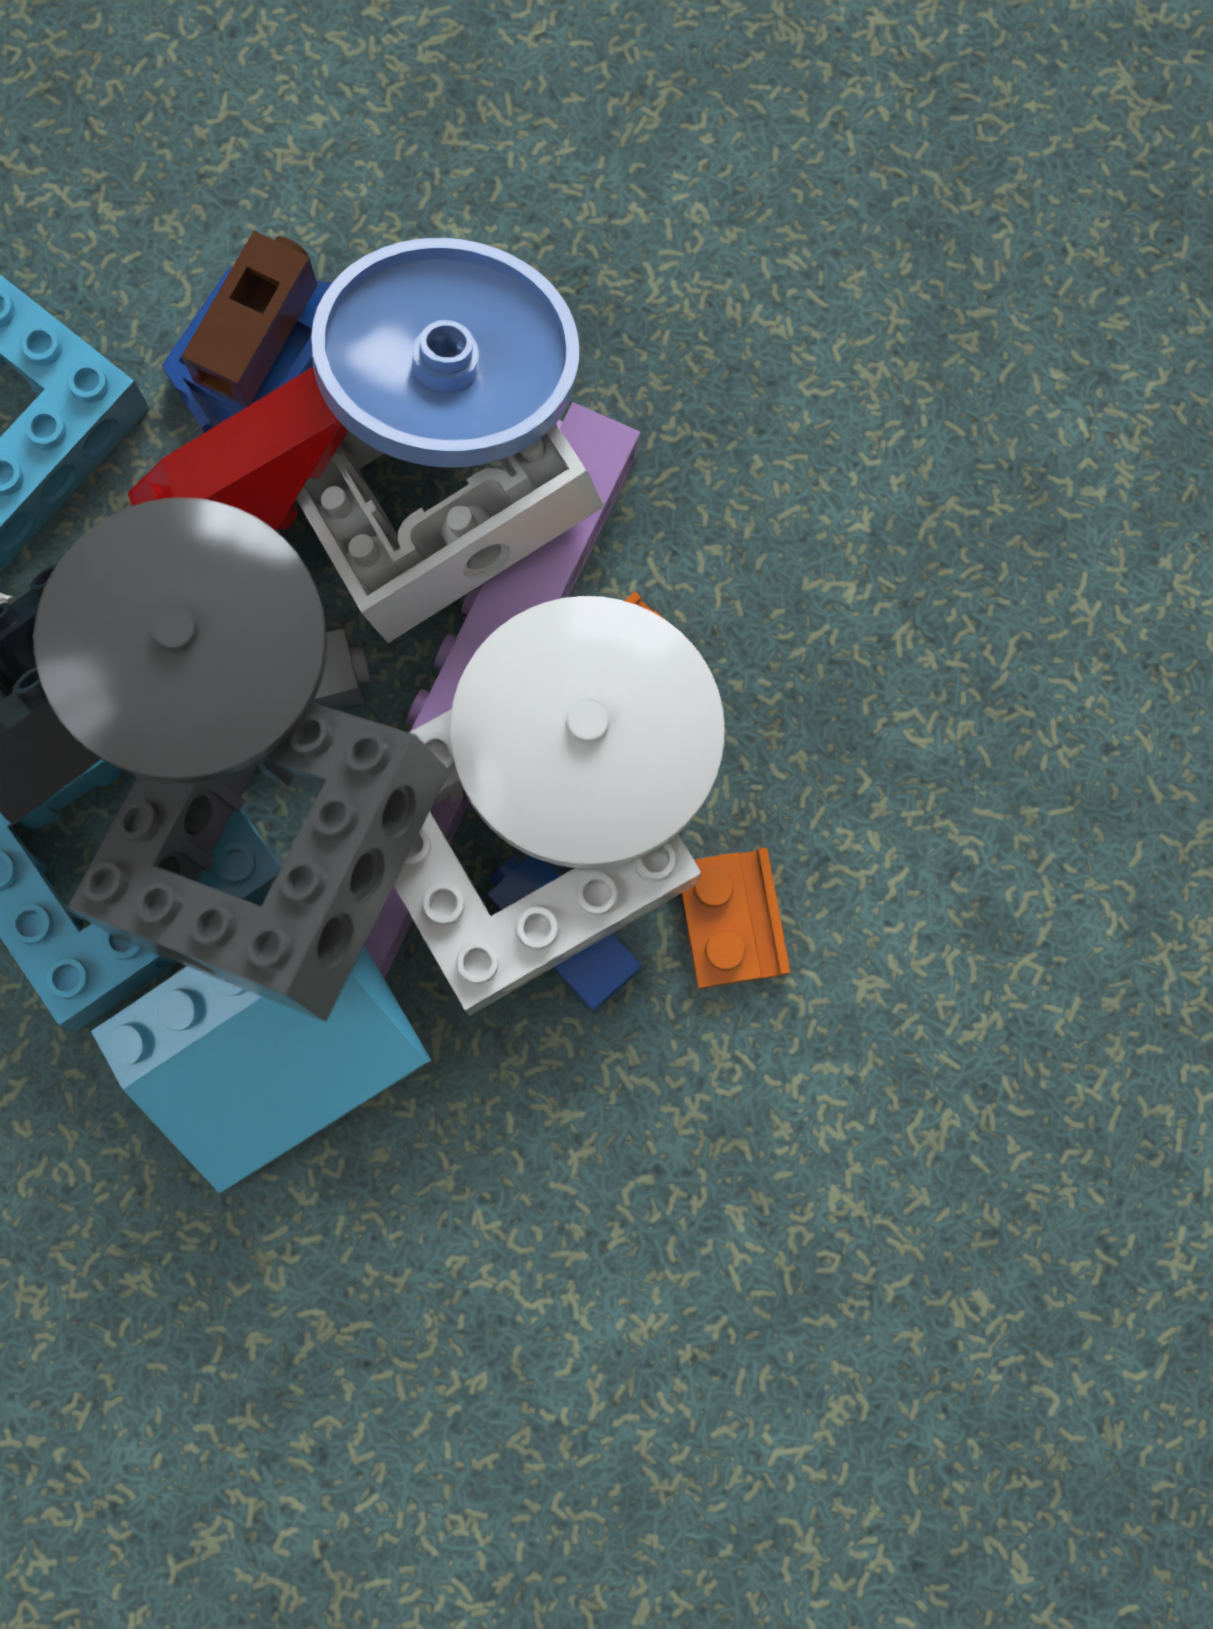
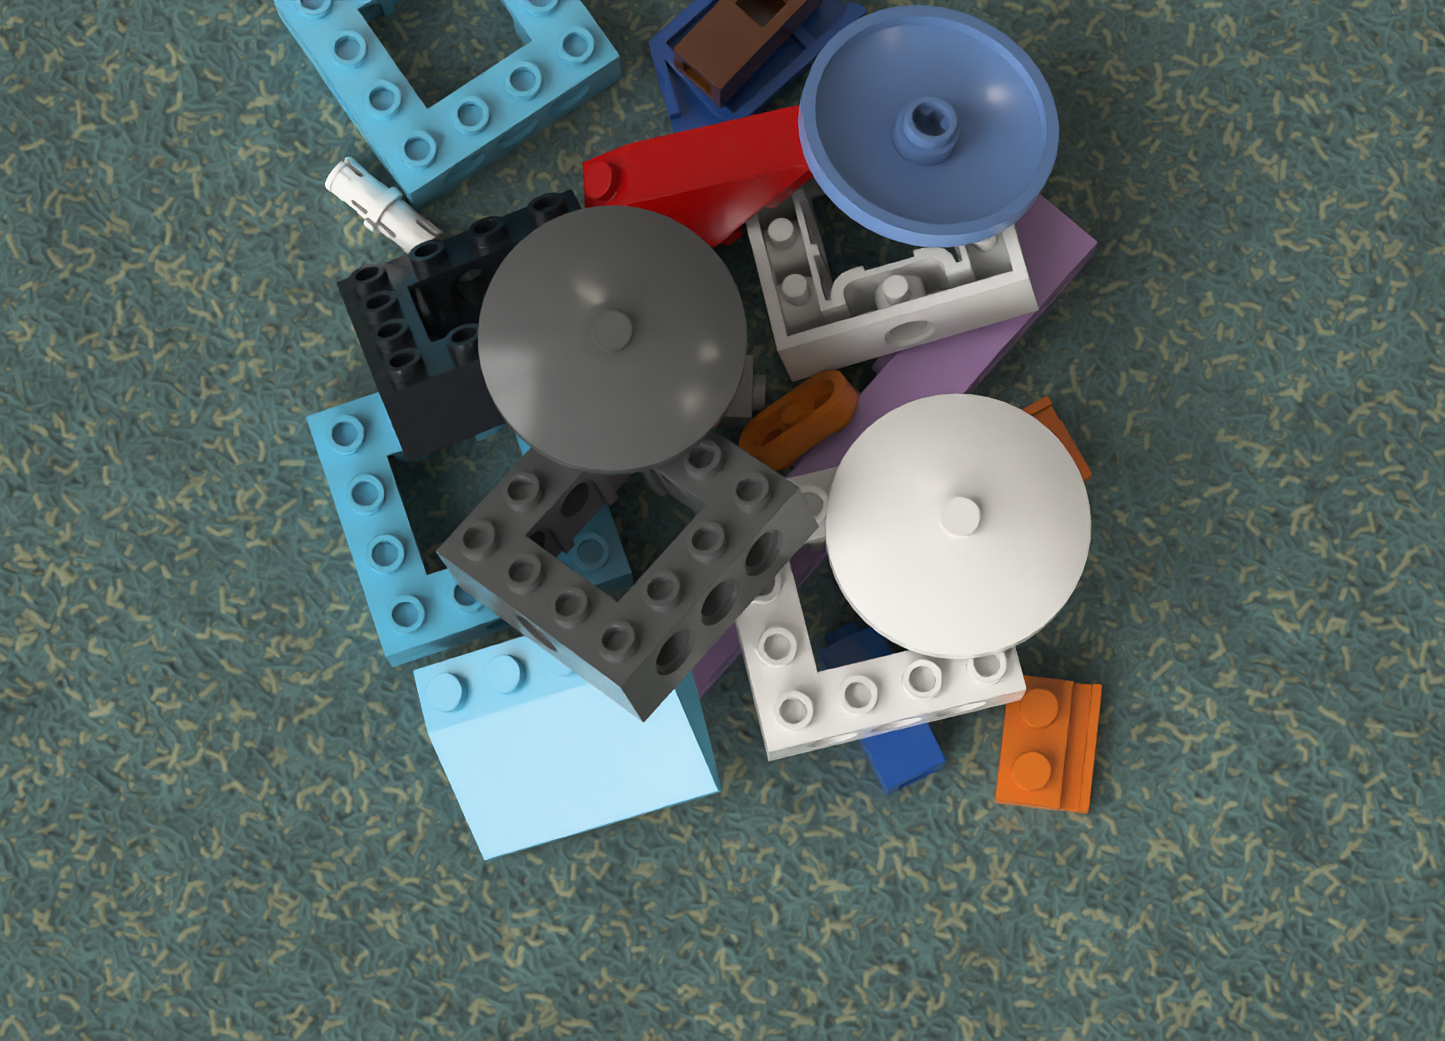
camera: 25 degrees right, 0 degrees up
(407, 675) = (800, 419): none -> orange plate

